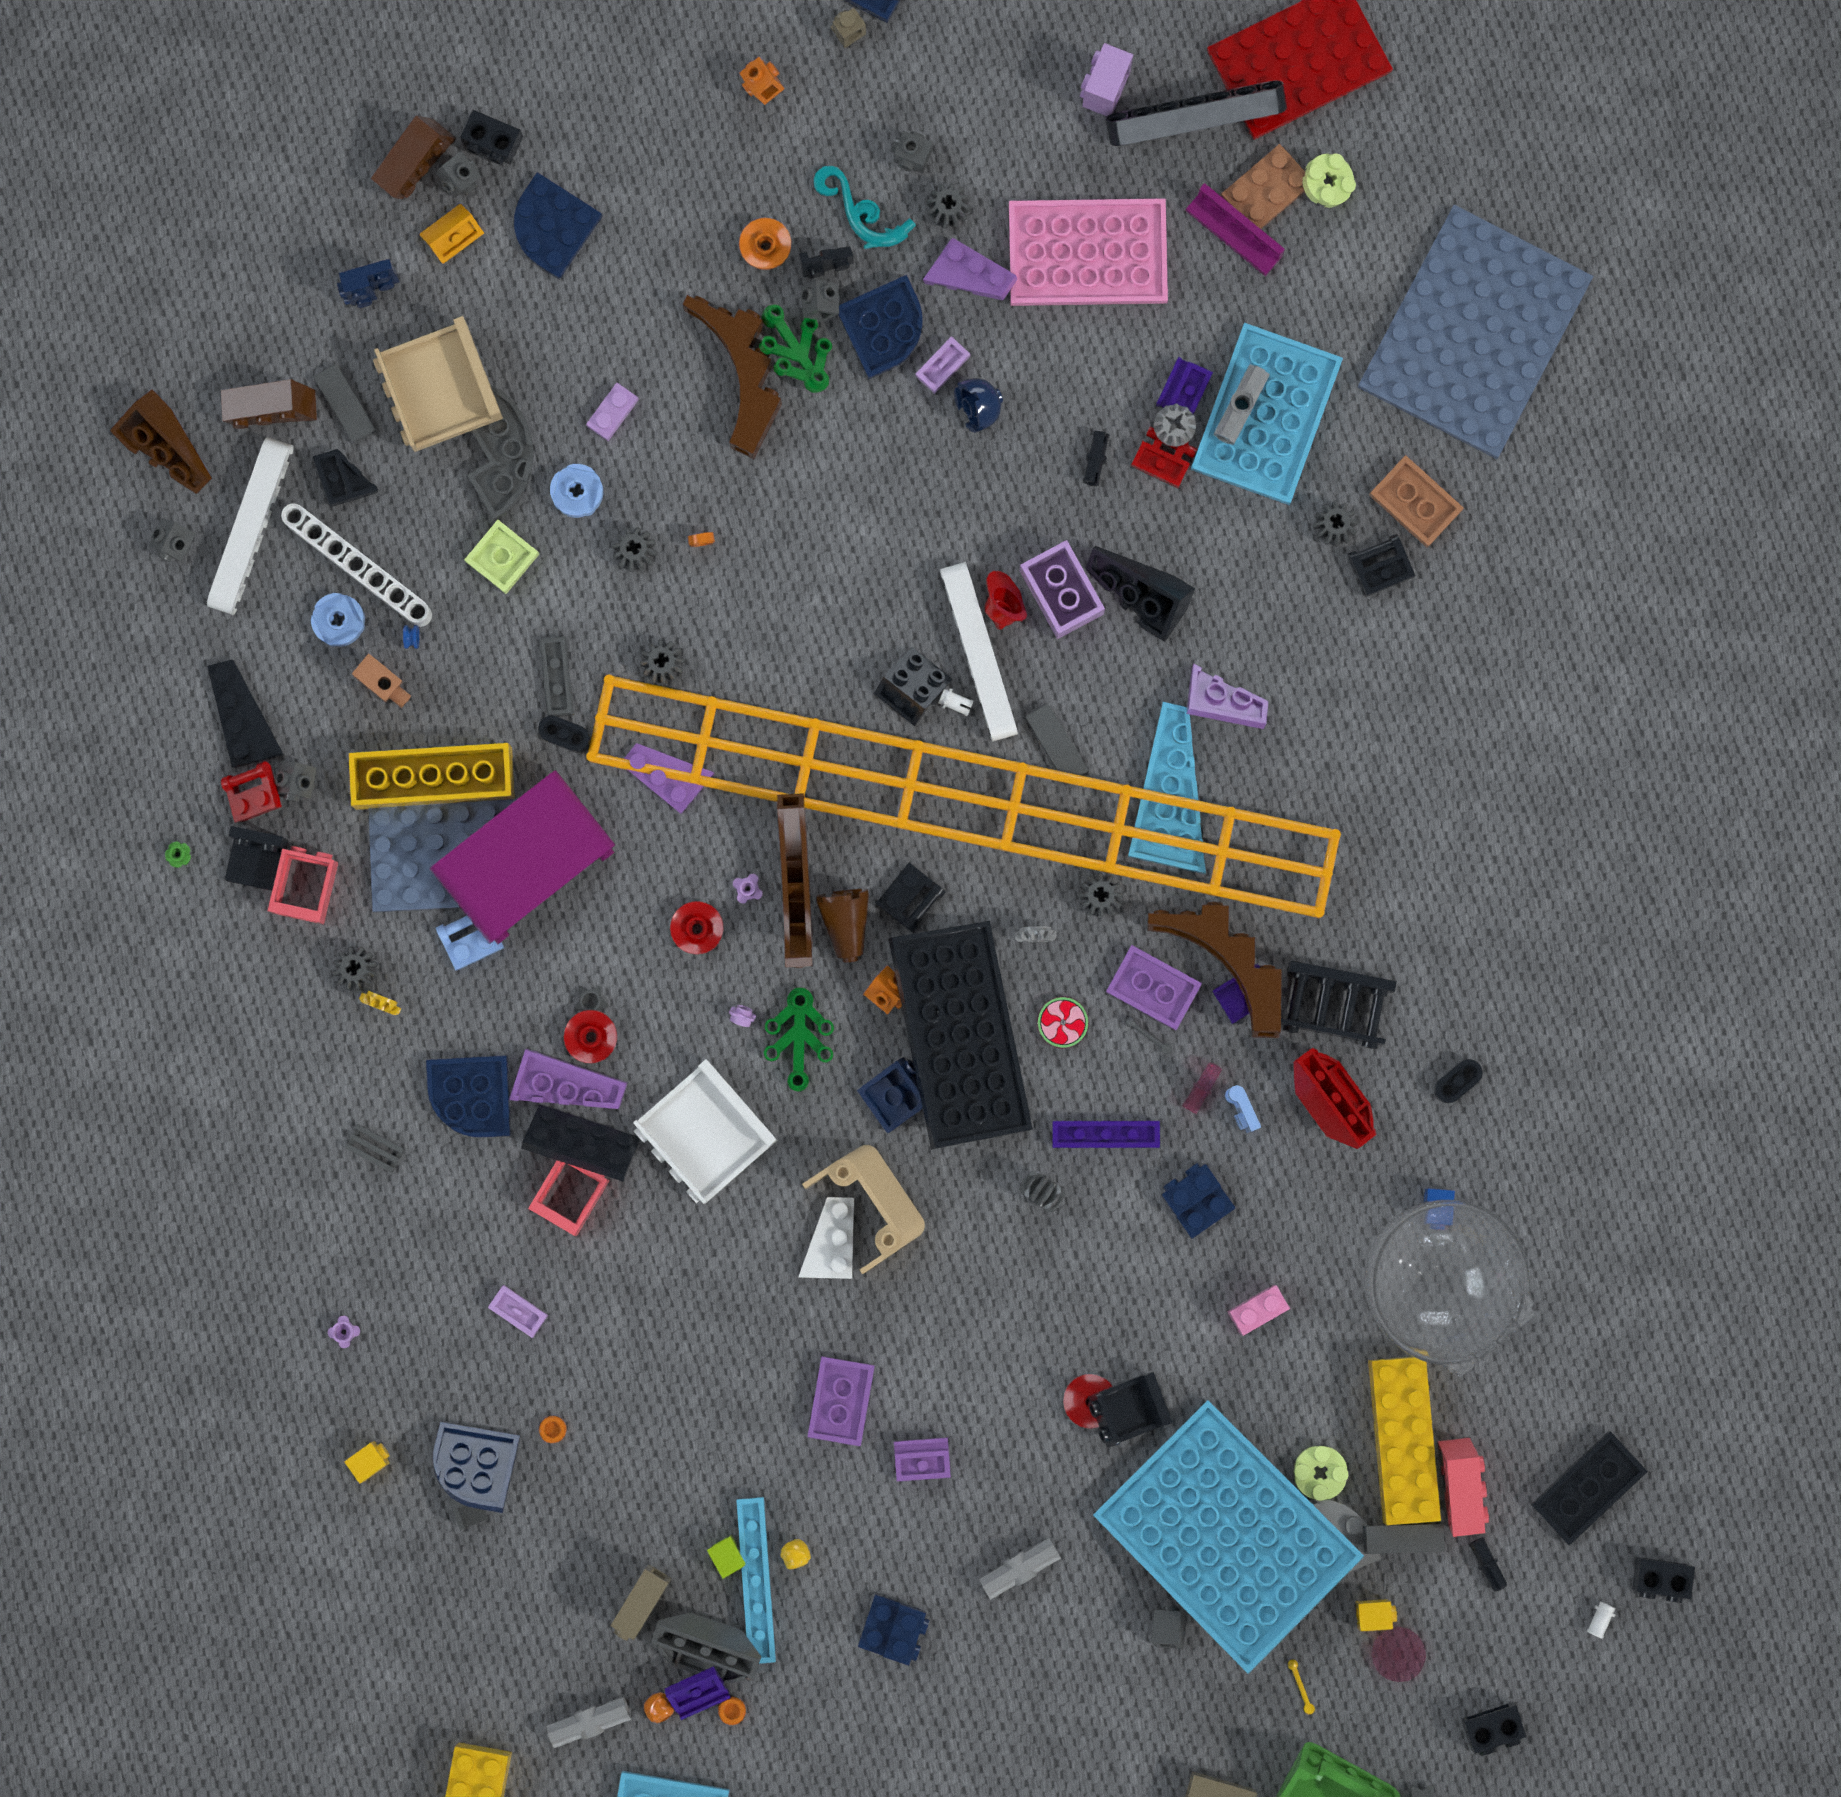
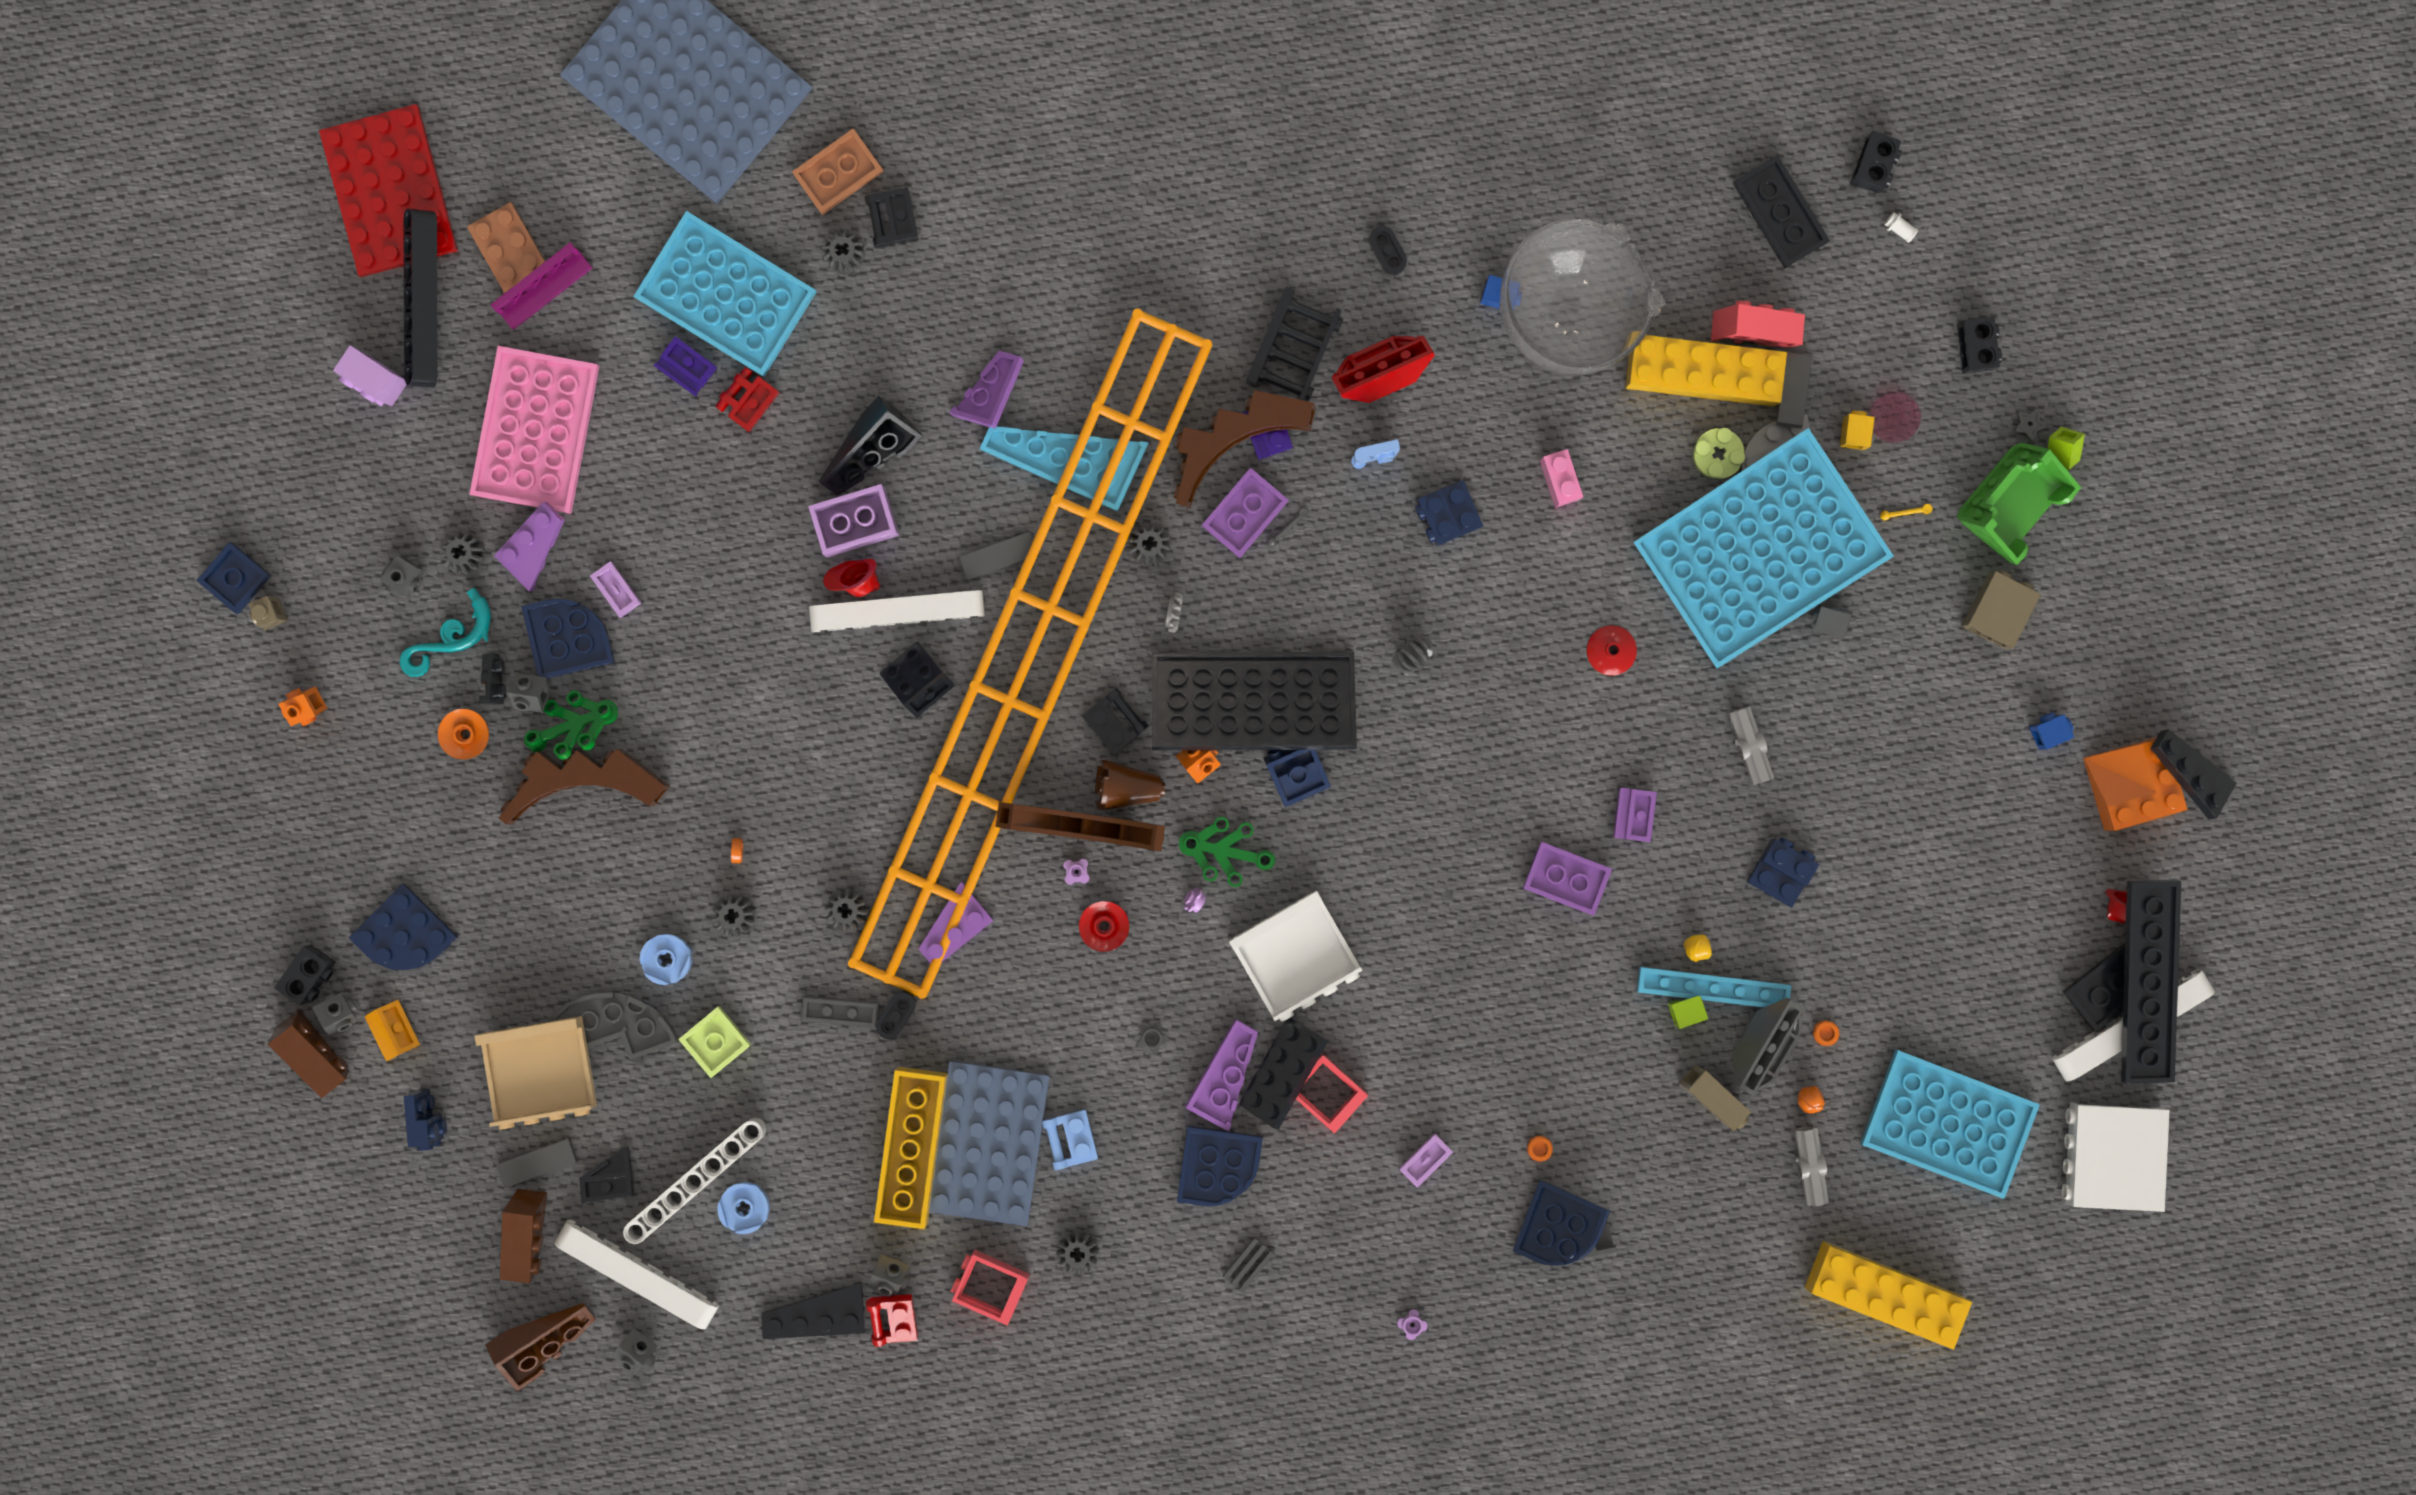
camera: 85 degrees left, 5 degrees up
(183, 859) = (938, 1392): bright green plate -> none
(254, 858) = (954, 1328): black bracket -> none
(368, 1461) = (1536, 1324): yellow brick -> none
(371, 672) = (802, 1187): nougat torso -> none
(380, 1002) = (1115, 1235): yellow gear -> none
(411, 636) = (774, 1141): blue bush -> none
(522, 857) = (1005, 1076): magenta windscreen -> none
(577, 1031) = (1185, 1058): red dish -> none
(612, 411) = (596, 910): lavender plate -> none
(697, 1693) = (1805, 1062): dark purple plate -> none
(832, 1243) = (1420, 857): white wing -> none
(885, 1192) = (1385, 799): tan windscreen -> none
(953, 701) = (939, 644): white pin -> none
(978, 399) = (655, 562): dark blue cylinder -> none
(1062, 1022) = (1260, 604): tile -> none
(1096, 458) = (735, 463): black pin -> none
(1105, 1134) = (1371, 585): dark purple plate -> none
(1129, 1409) = (1628, 615): black panel -> none
(1178, 436) = (730, 382): light grey gear -> none
(1202, 1088) = (1347, 487): clear pink axle -> none
(1249, 391) = (700, 305): light grey piece -> none
(1342, 178) = (507, 175): yellowish green plate -> none
(1488, 1564) = (1831, 318): black axle -> none

